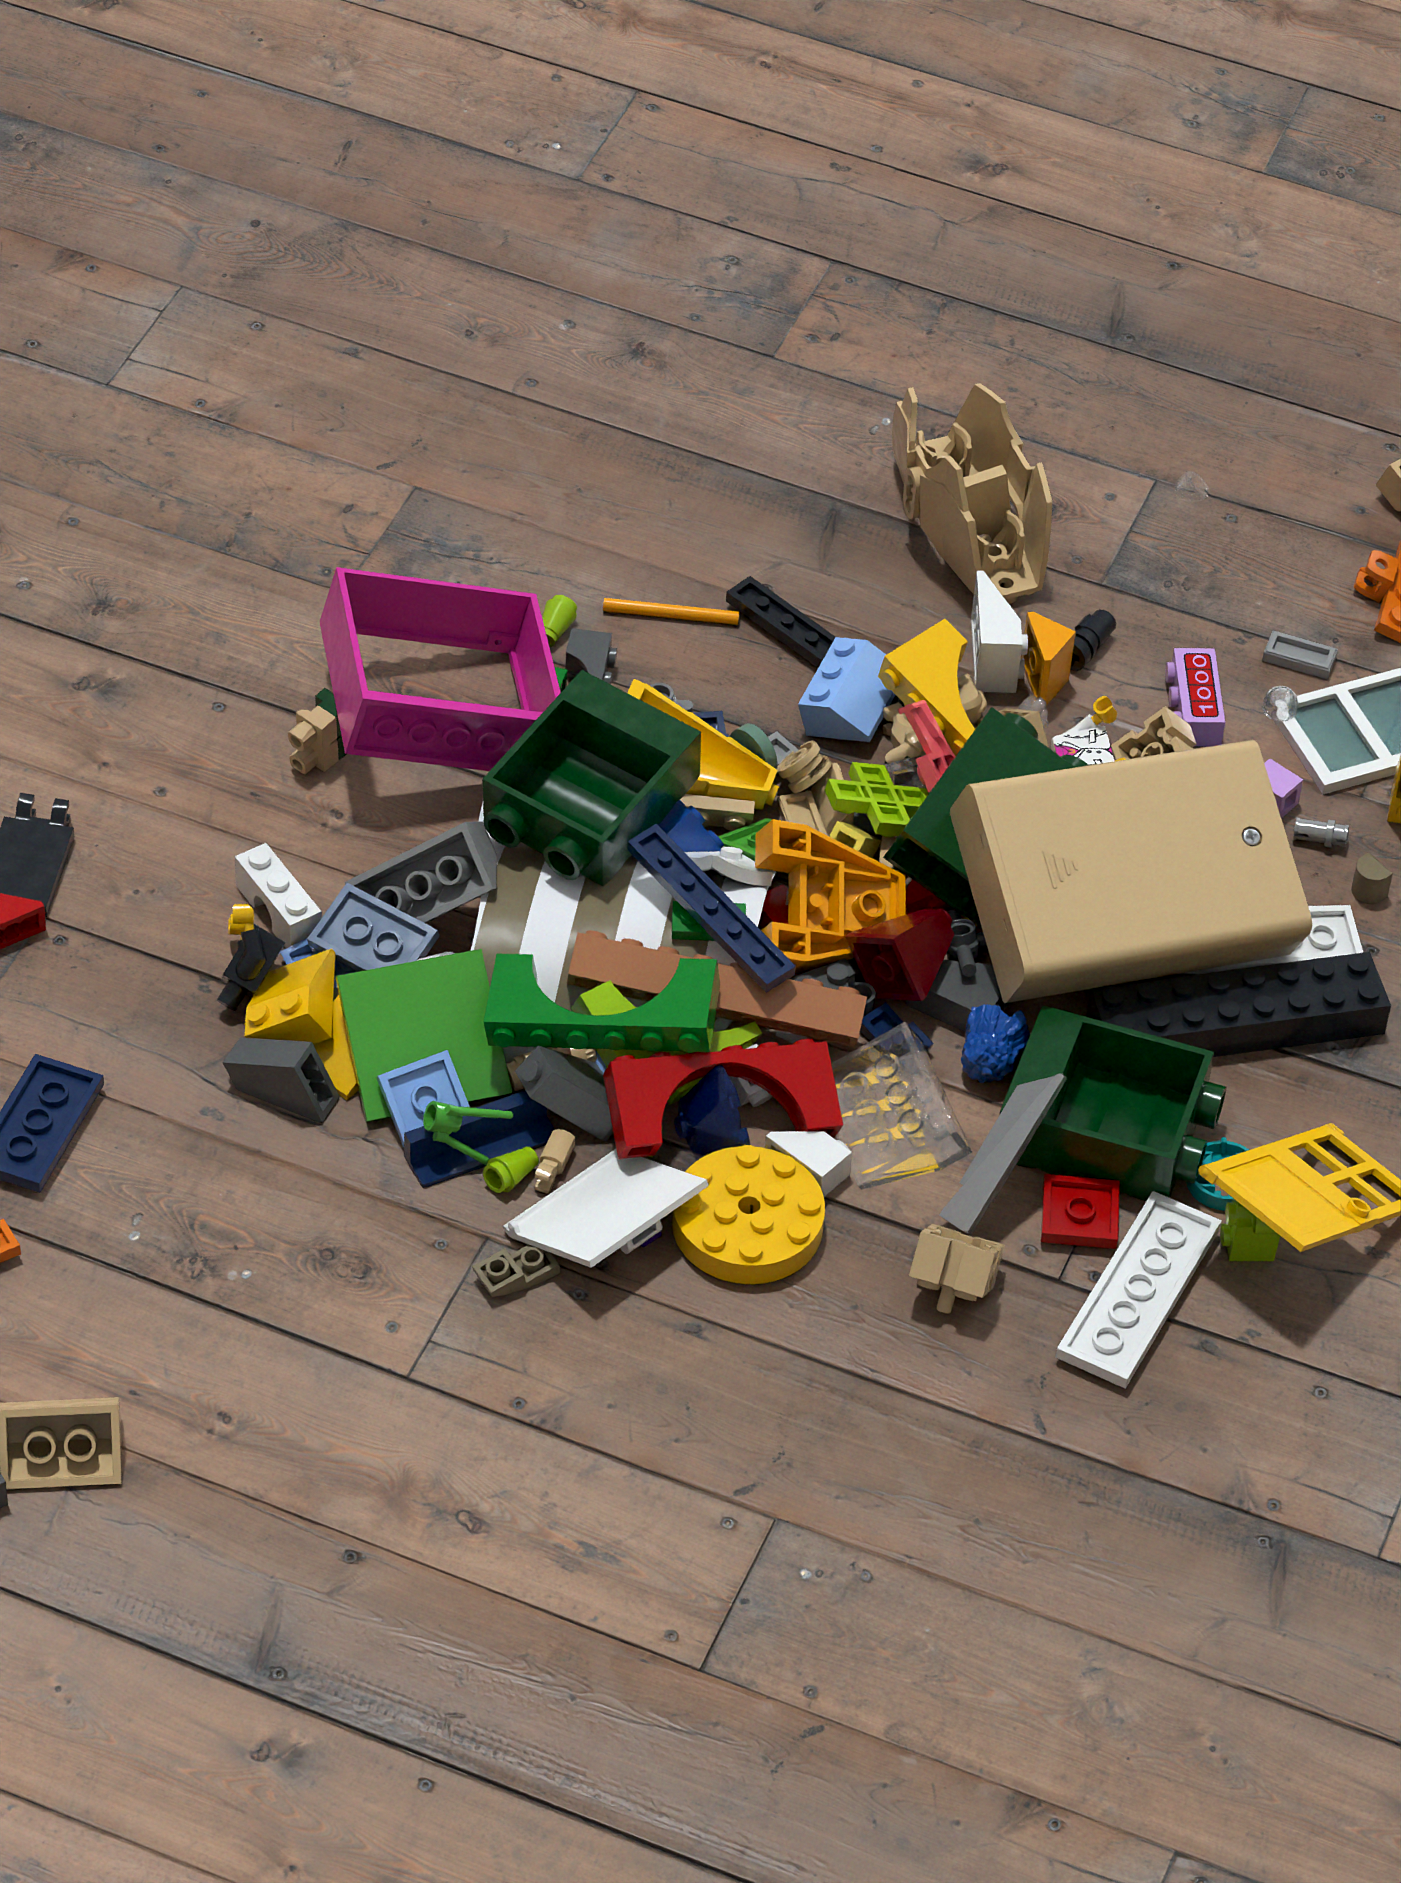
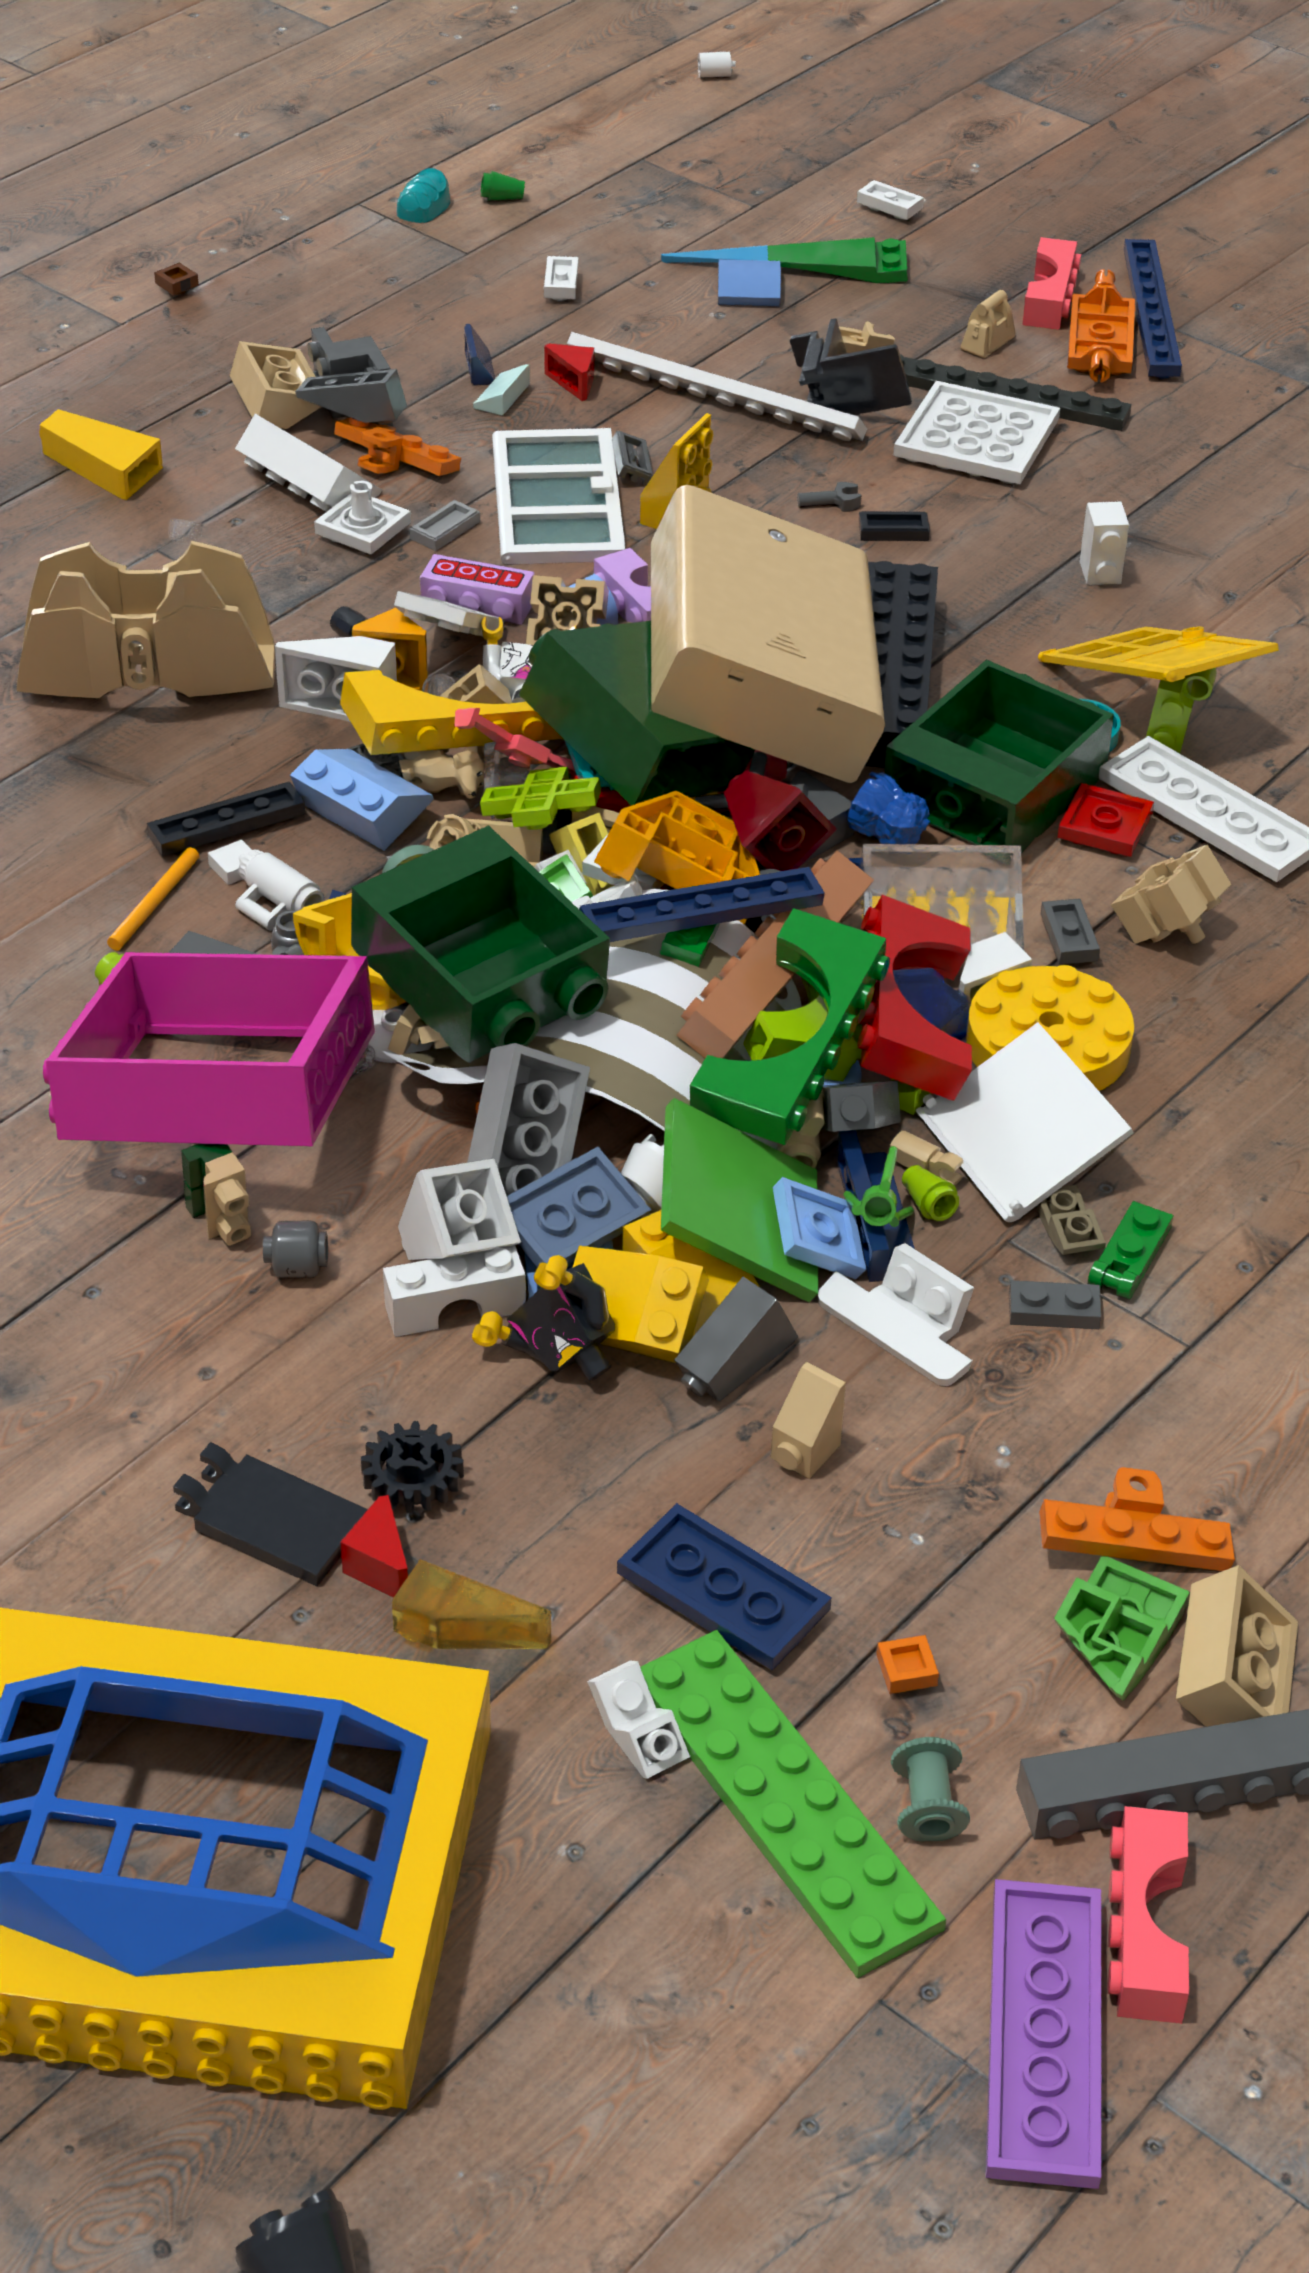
camera: 70 degrees left, 5 degrees down
(77, 1364) = (1121, 1621): none -> bright green slope
(91, 920) = (412, 1466): none -> black gear
(172, 1357) = (1135, 1529): none -> orange plate
(203, 1133) = (809, 1421): none -> tan slope
(287, 798) = (296, 1249): none -> dark grey head
(317, 861) = (457, 1212): none -> white slope
(358, 1179) = (908, 1313): none -> white plate
(416, 1276) = (1054, 1304): none -> dark grey plate
(498, 1317) = (1131, 1249): none -> green plate
(710, 677) = (278, 883): none -> white piece
(739, 646) = (226, 861): none -> white tile
(899, 1209) = (1070, 931): none -> dark grey plate
(1001, 1151) = (1064, 821): light grey wedge -> none
(1108, 671) = (445, 613): none -> white plate
(1263, 595) = (362, 520): none -> white plate
(1264, 400) = (101, 452): none -> yellow slope
(1280, 703) = (516, 541): clear piece -> none
(1325, 536) = (298, 463): none -> white slope

